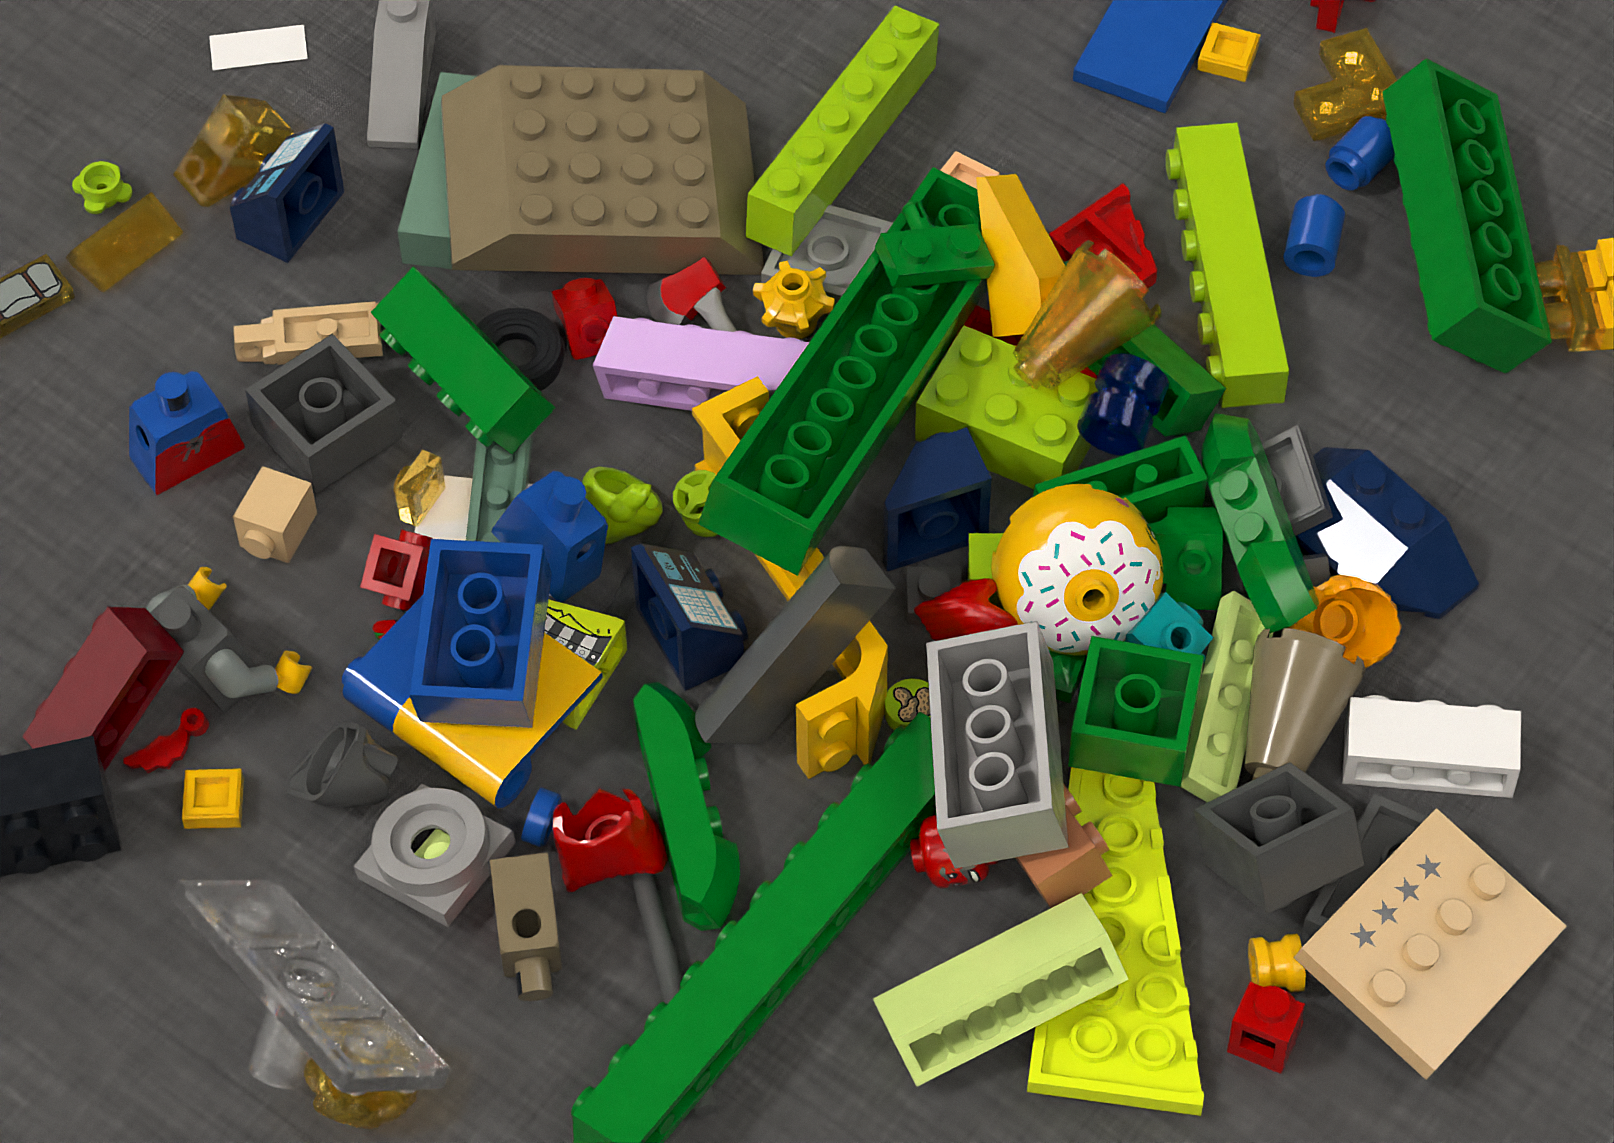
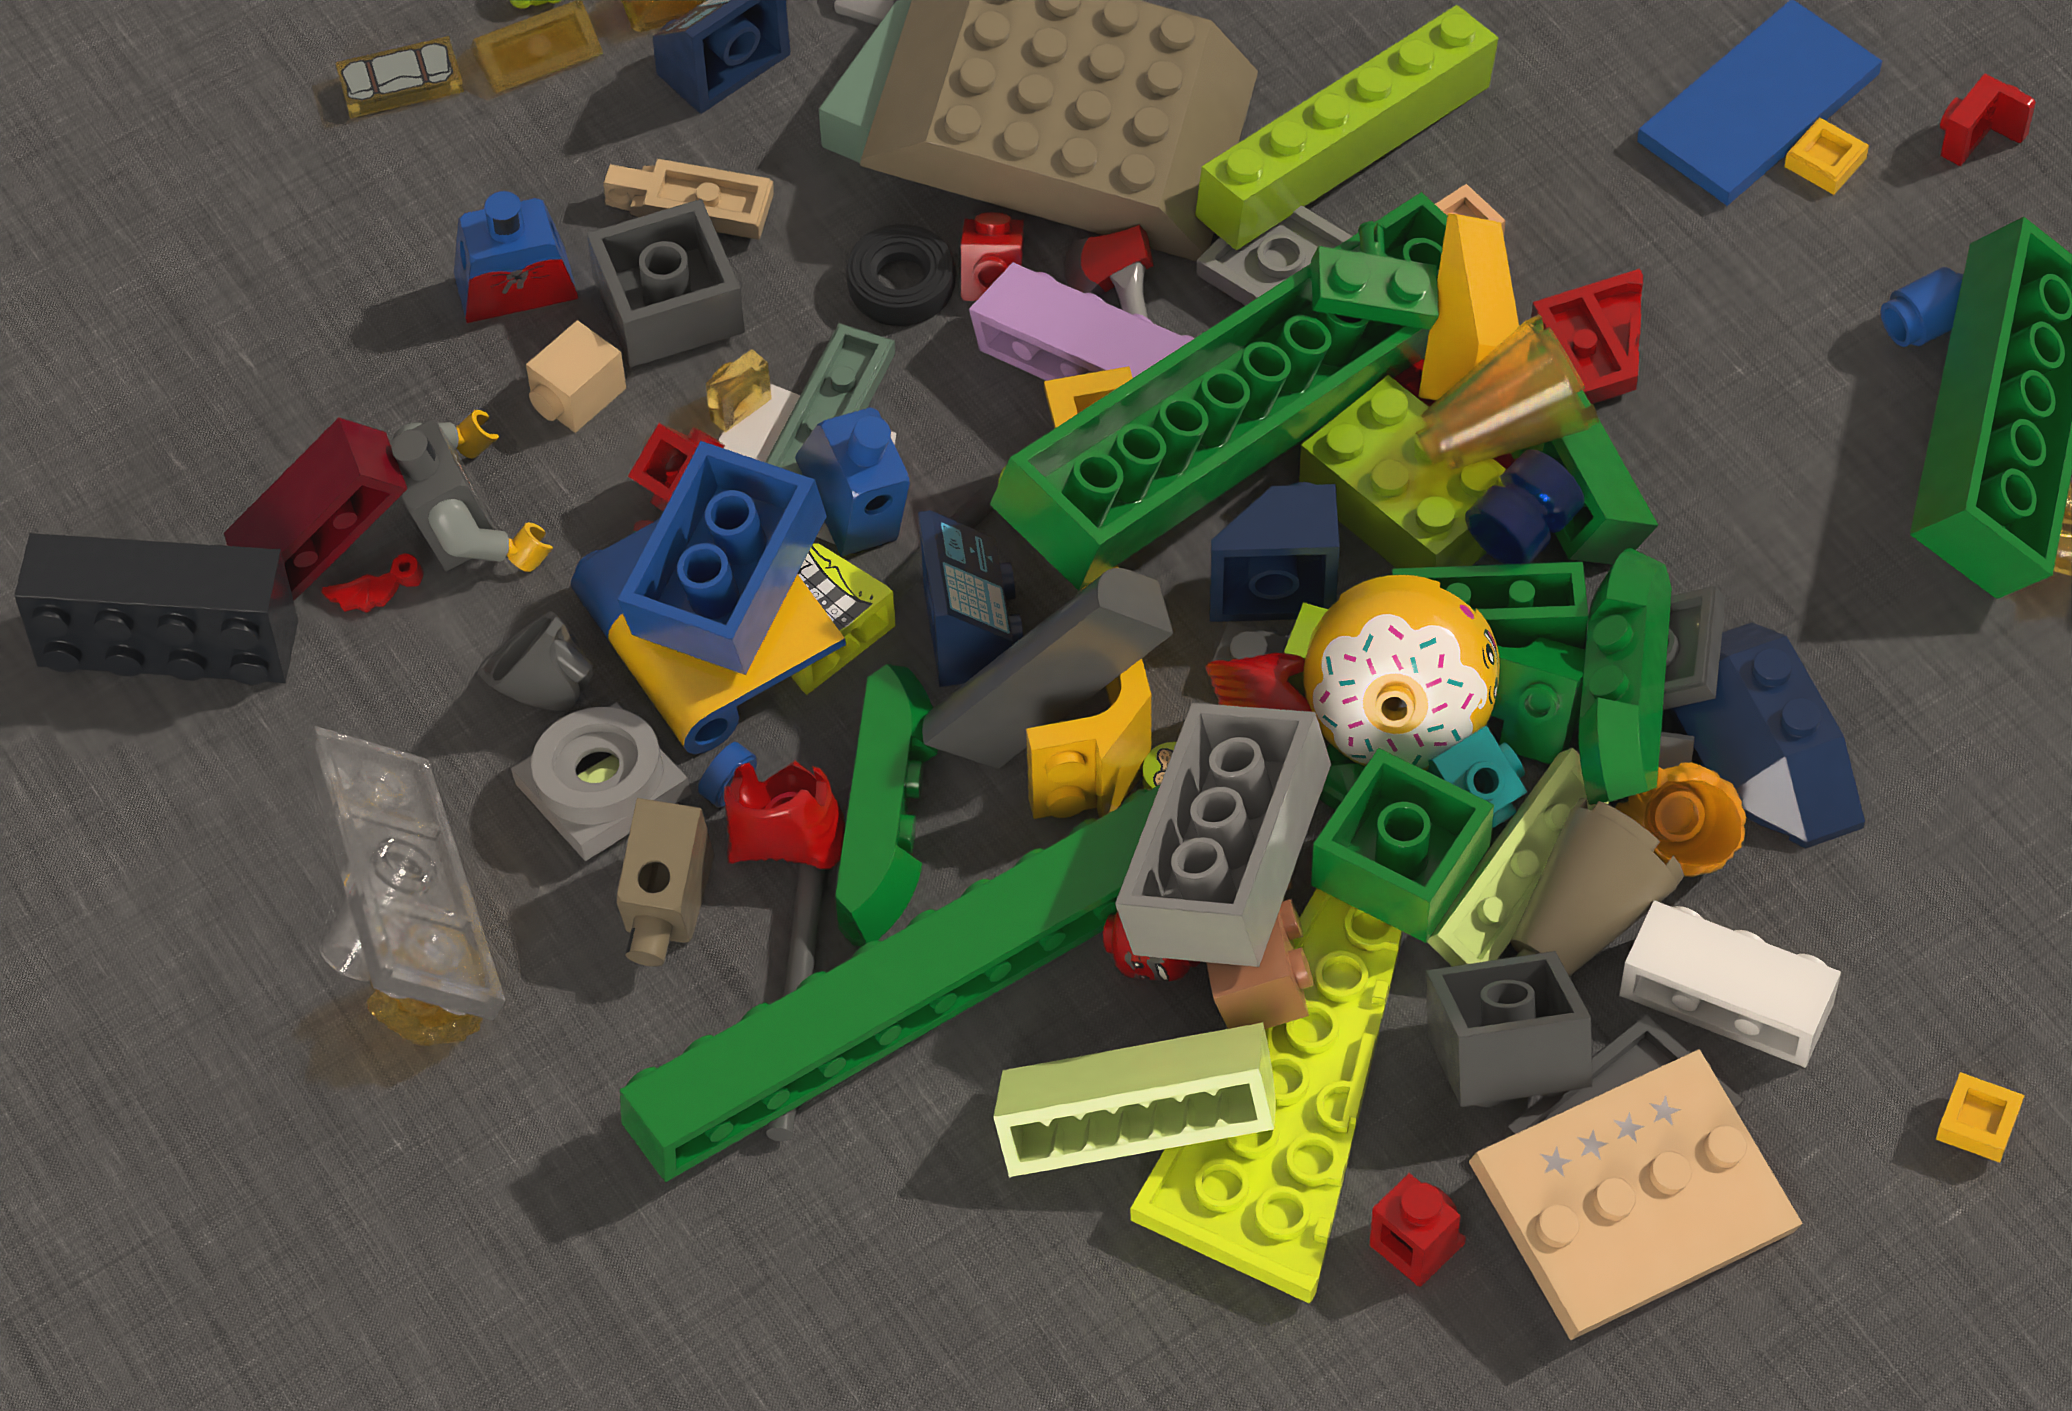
camera: 20 degrees right, 0 degrees up
(213, 798) = (398, 656): yellow tile -> none
(461, 361) = (831, 267): green brick -> none
(623, 501) = (943, 465): lime hat -> none
(794, 300) = (1214, 292): yellow rock -> none
(1228, 265) = (1722, 392): lime brick -> none
(1274, 963) = (1451, 1168): yellow wheel -> none
(1314, 235) = (1835, 385): blue brick -> none
(1356, 87) = (1962, 212): clear yellow plate -> none

